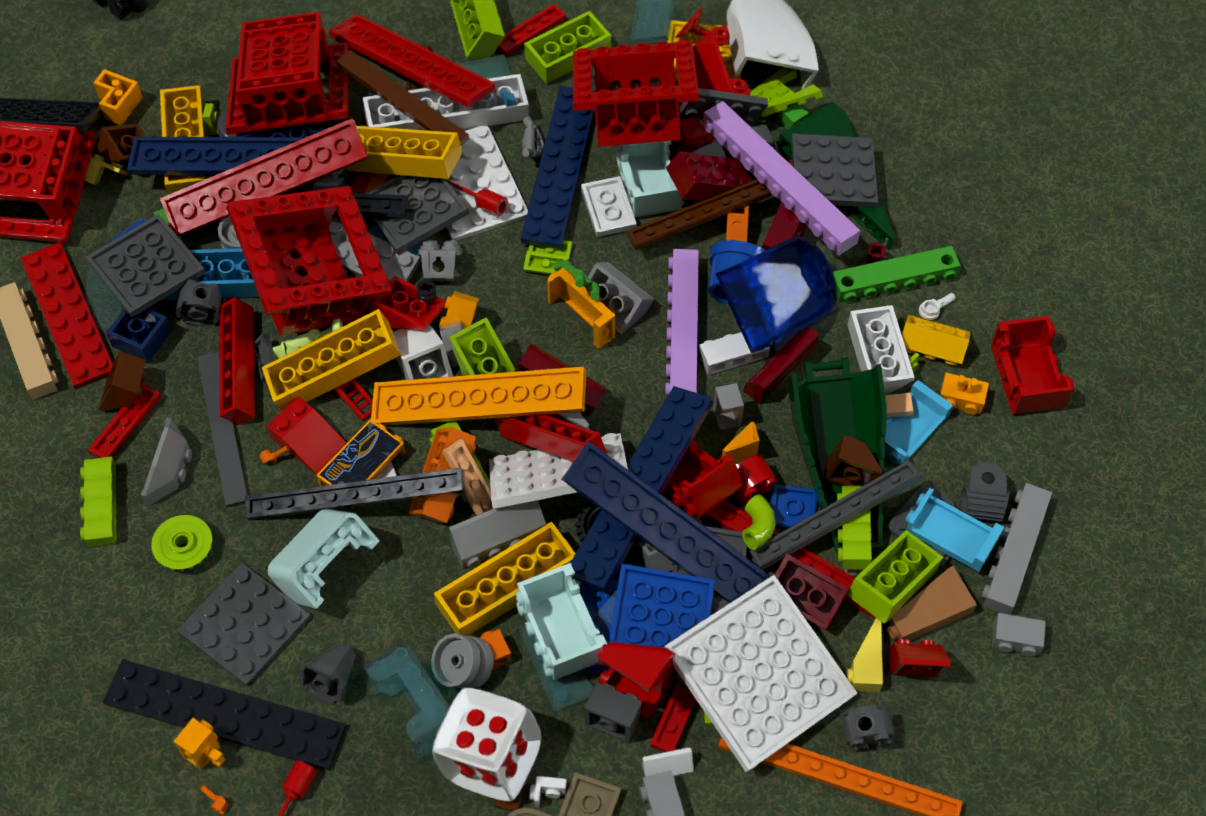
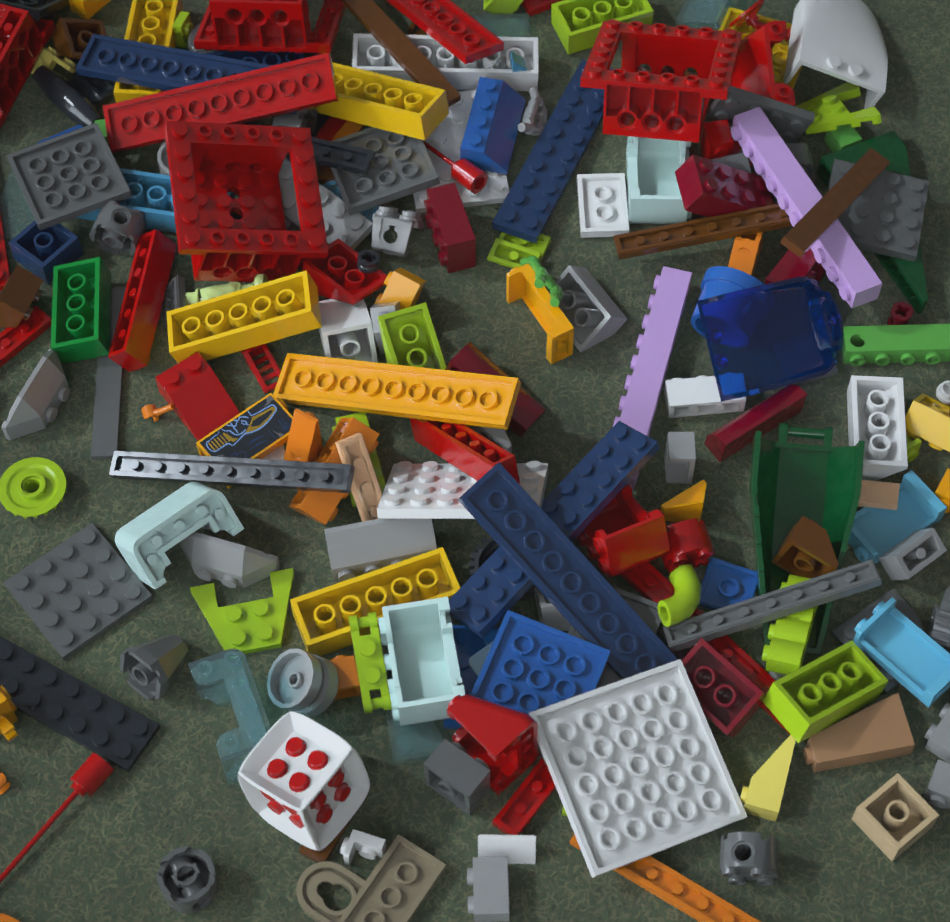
camera: 15 degrees right, 0 degrees up
(130, 192) = (76, 95): none -> black plate
(185, 380) = (81, 310): none -> green brick
(369, 571) = (227, 561): none -> light grey wedge
(402, 621) = (251, 624): none -> lime wing
(411, 453) = (304, 438): none -> orange slope
(487, 249) = (450, 228): none -> dark red brick
(500, 156) = (492, 126): none -> blue slope
(515, 632) = (370, 662): none -> lime plate
(805, 170) = (835, 203): none -> reddish brown tile
(918, 659) = (828, 792): red slope -> none
(935, 449) = (912, 554): none -> light grey brick
(975, 667) = (895, 817): none -> tan brick

